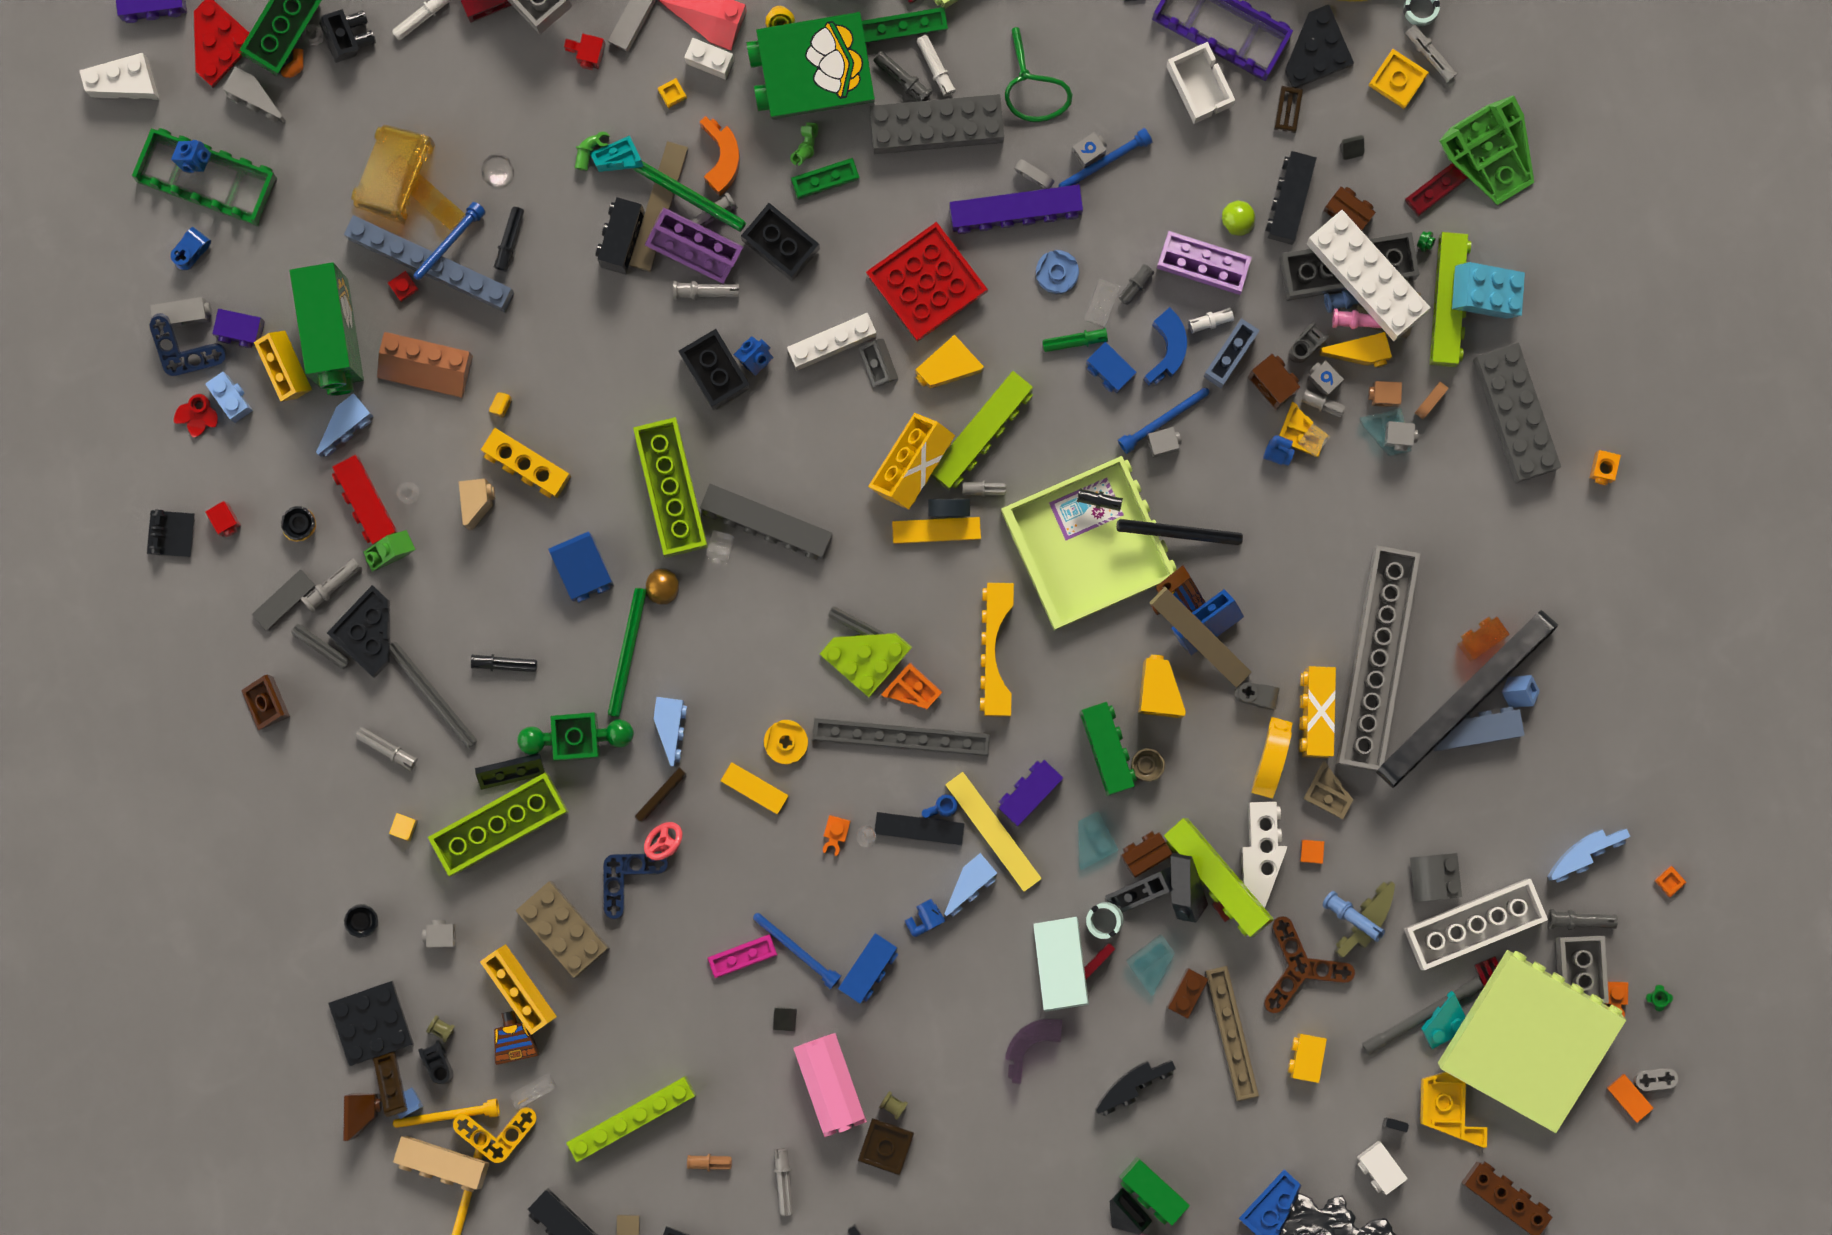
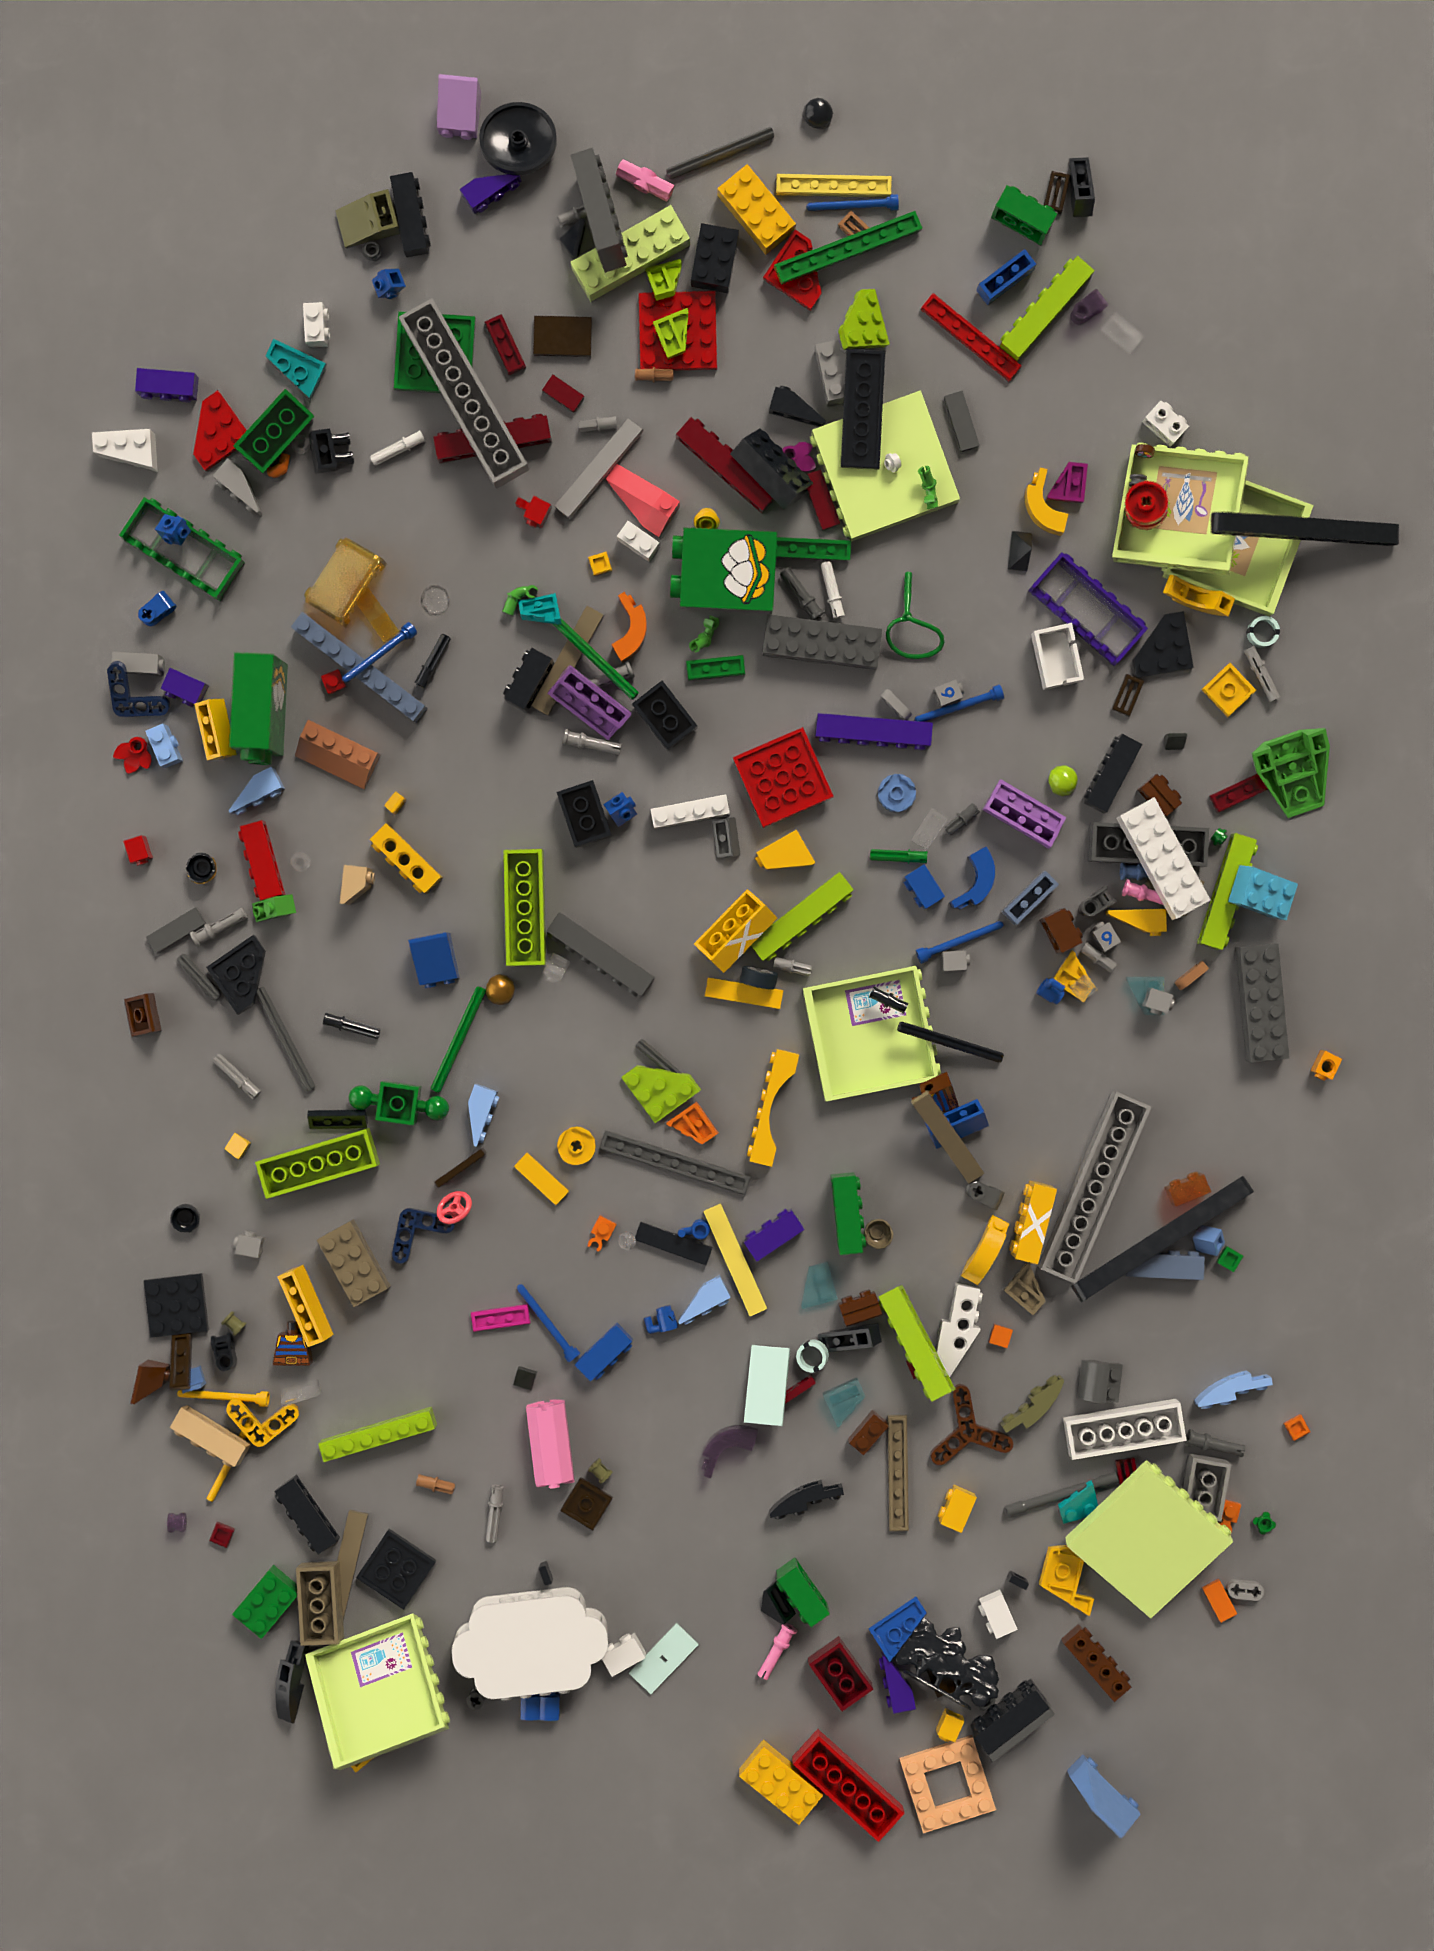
camera: 10 degrees right, 5 degrees up
(170, 533) = (91, 852): black hinge -> none
(1159, 689) = (902, 1172): yellow slope -> none
(1186, 889) = (887, 1348): black slope -> none
(1211, 320) = (1018, 864): white pin -> none
(1345, 911) = (1017, 1394): medium blue pin -> none
(1385, 394) = (1153, 961): medium nougat brick -> none
(1549, 707) = (1229, 1258): none -> green plate

